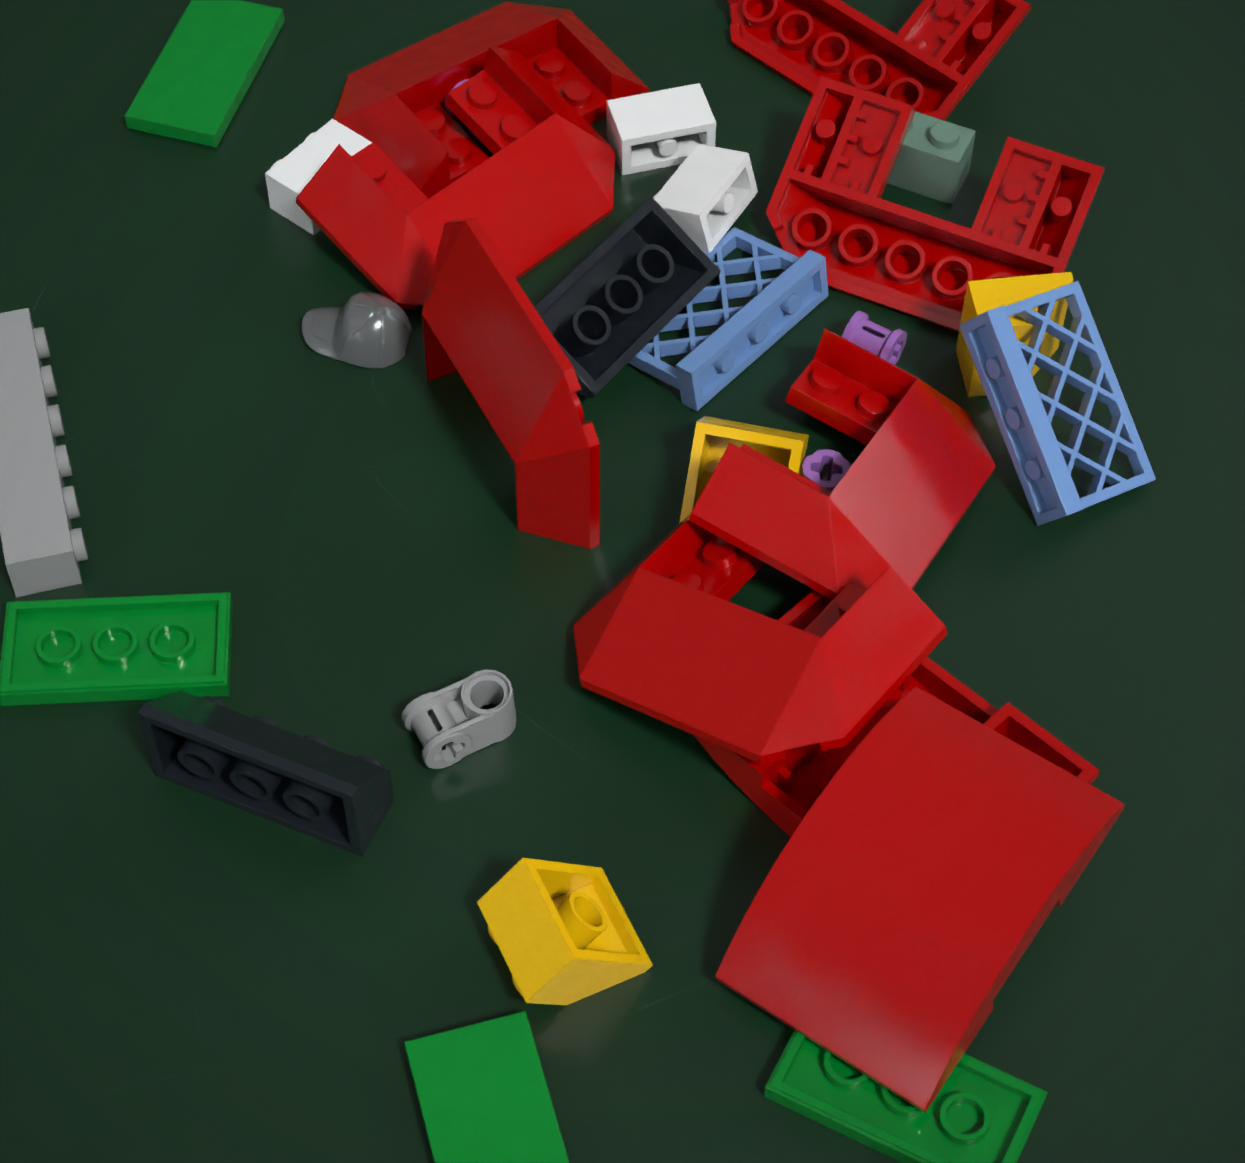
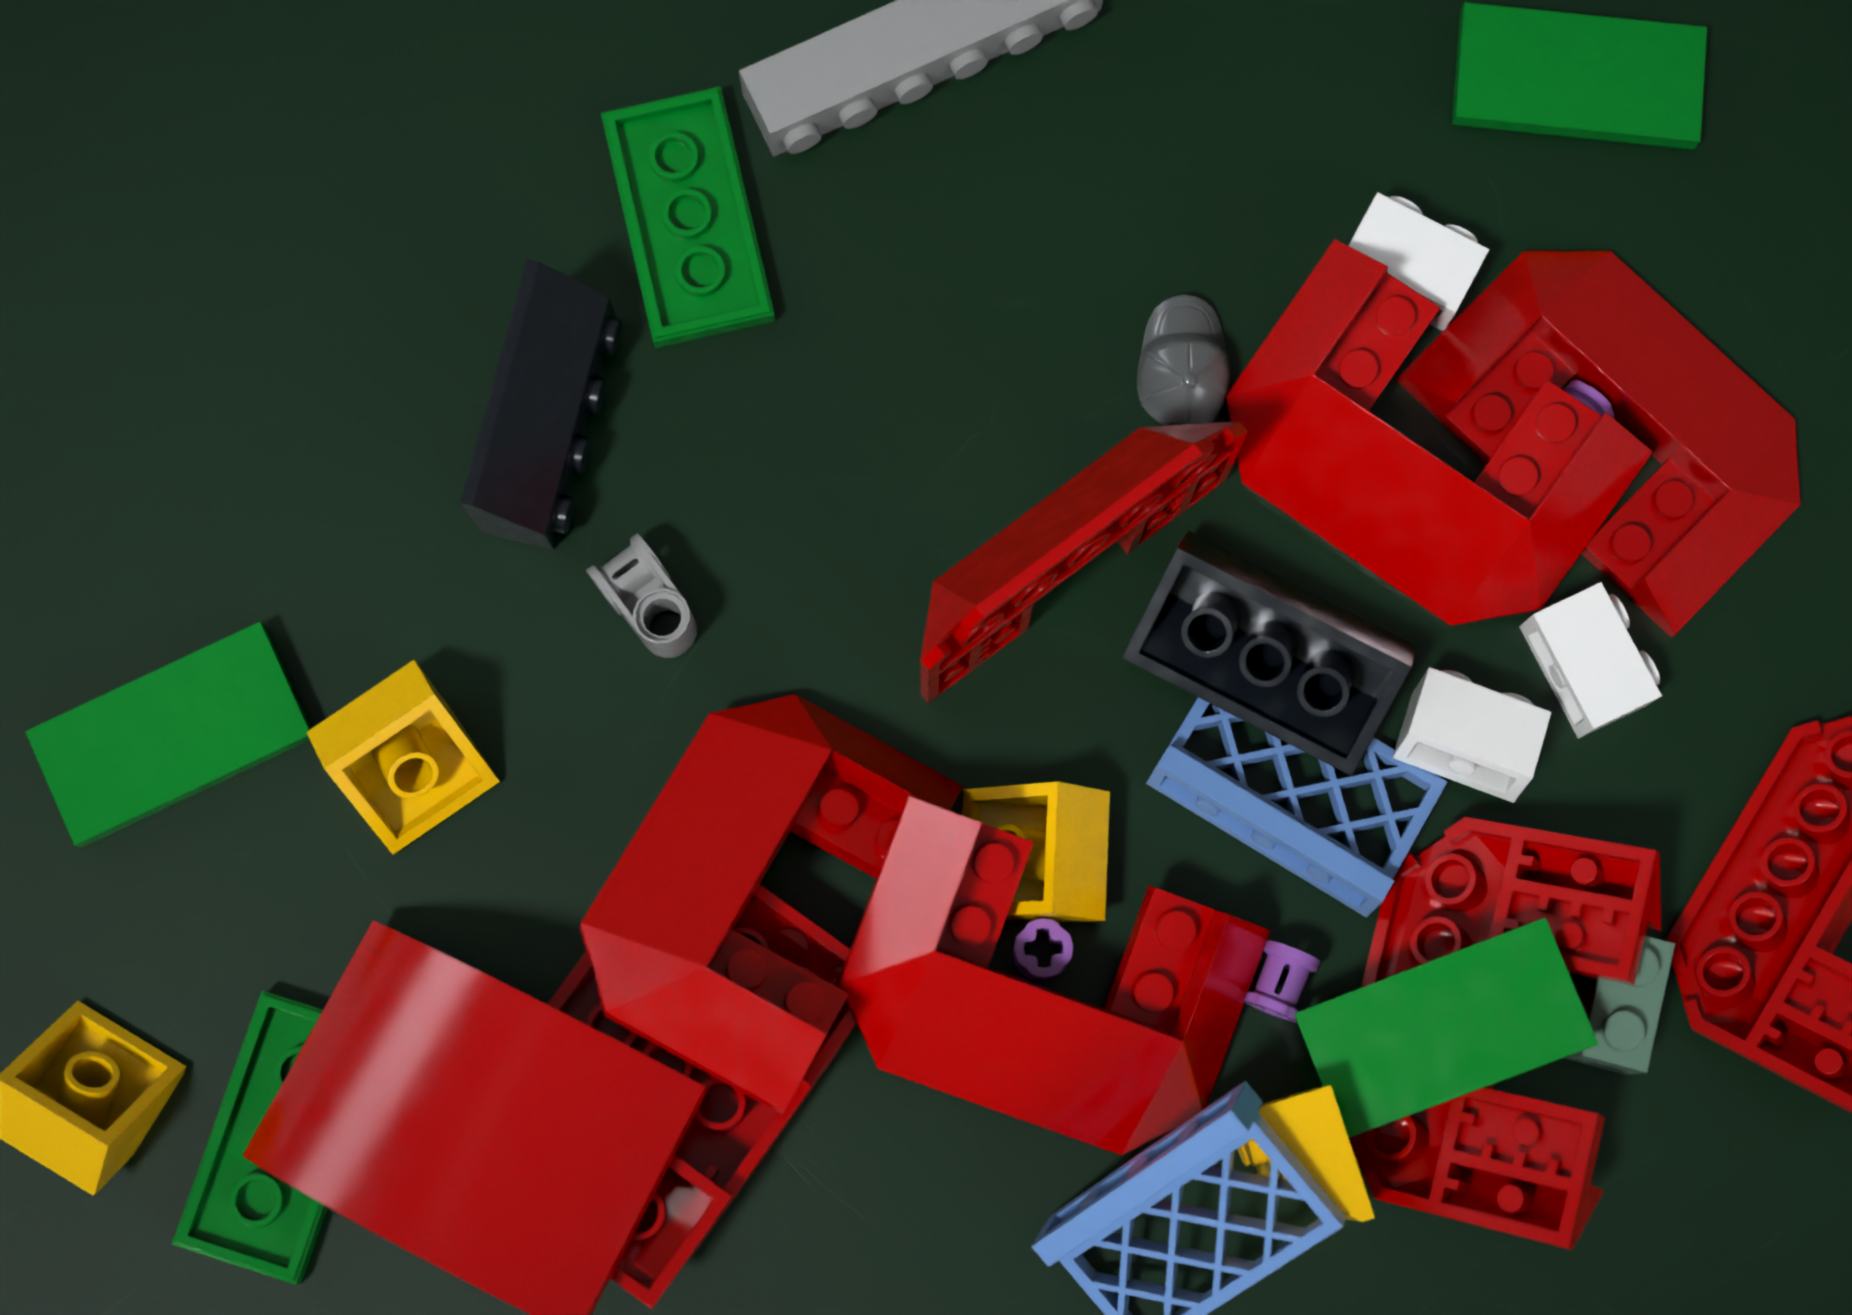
camera: 80 degrees right, 25 degrees up
(925, 224) = (1447, 1027): none -> green tile

